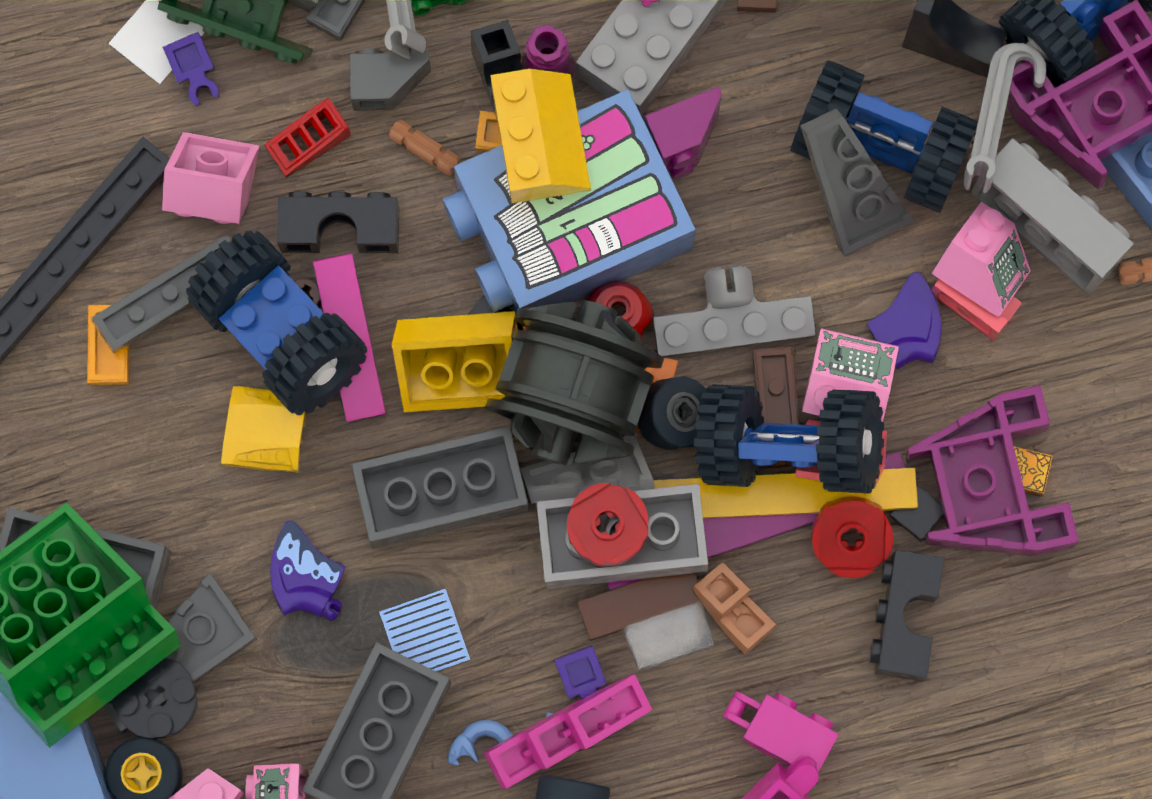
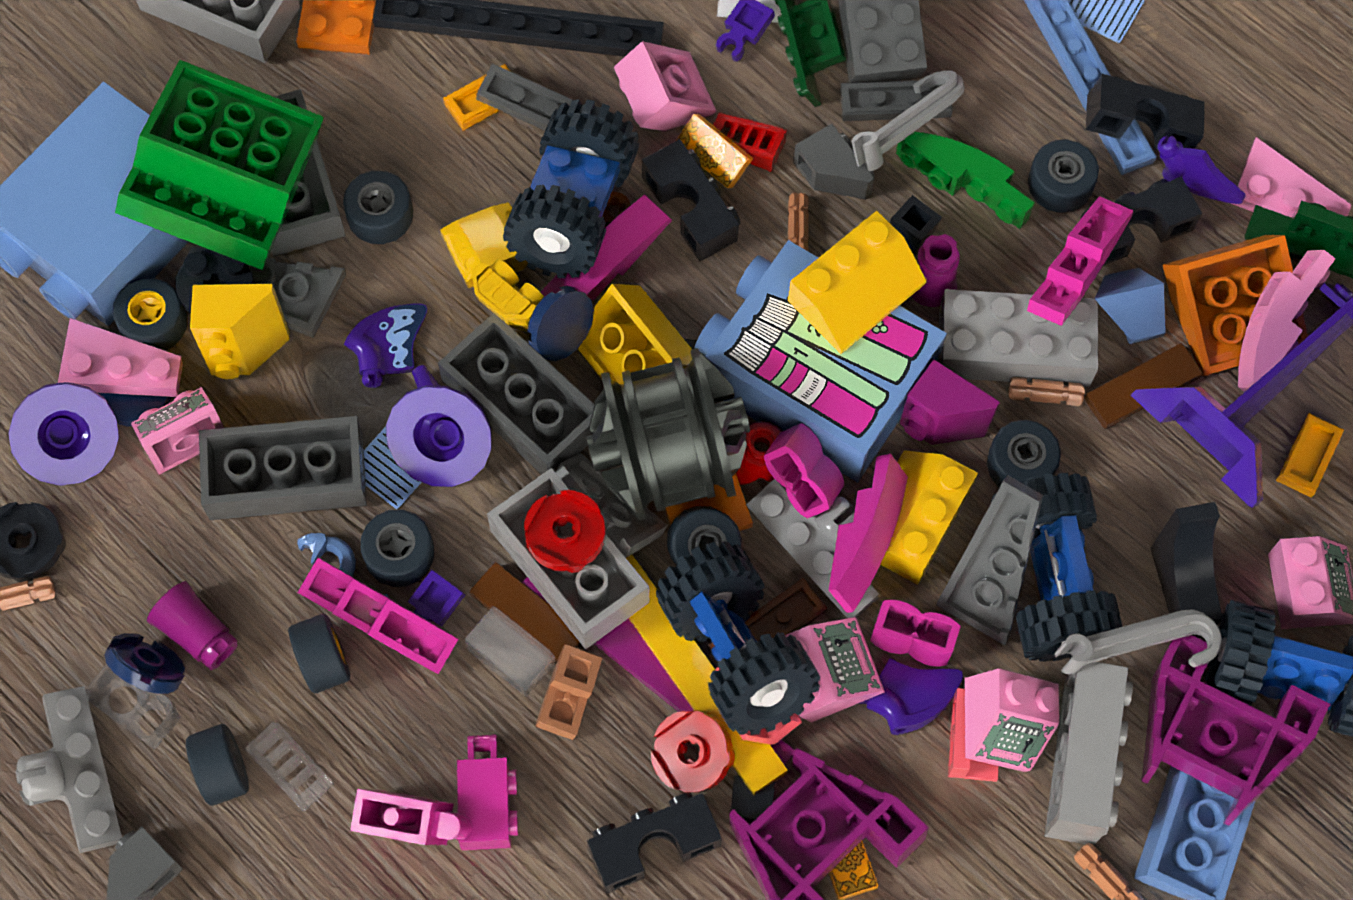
camera: 55 degrees right, 10 degrees down
(157, 494) = (369, 196): none -> black wheel
(221, 701) = (237, 326): none -> yellow slope
(303, 172) = (715, 150): none -> tile
(346, 444) = (497, 291): none -> yellow slope
(399, 412) = (560, 323): none -> dark blue tile
(429, 581) = (438, 433): none -> piece
(512, 664) = (391, 534): none -> black wheel
(669, 288) = (801, 467): none -> dark pink brick
(712, 38) = (1046, 391): none -> nougat axle
(755, 218) = (929, 507): none -> yellow slope
(760, 110) = (1026, 437): none -> black wheel
(765, 278) = (865, 540): none -> dark pink slope
(855, 293) = (924, 636): none -> dark pink brick

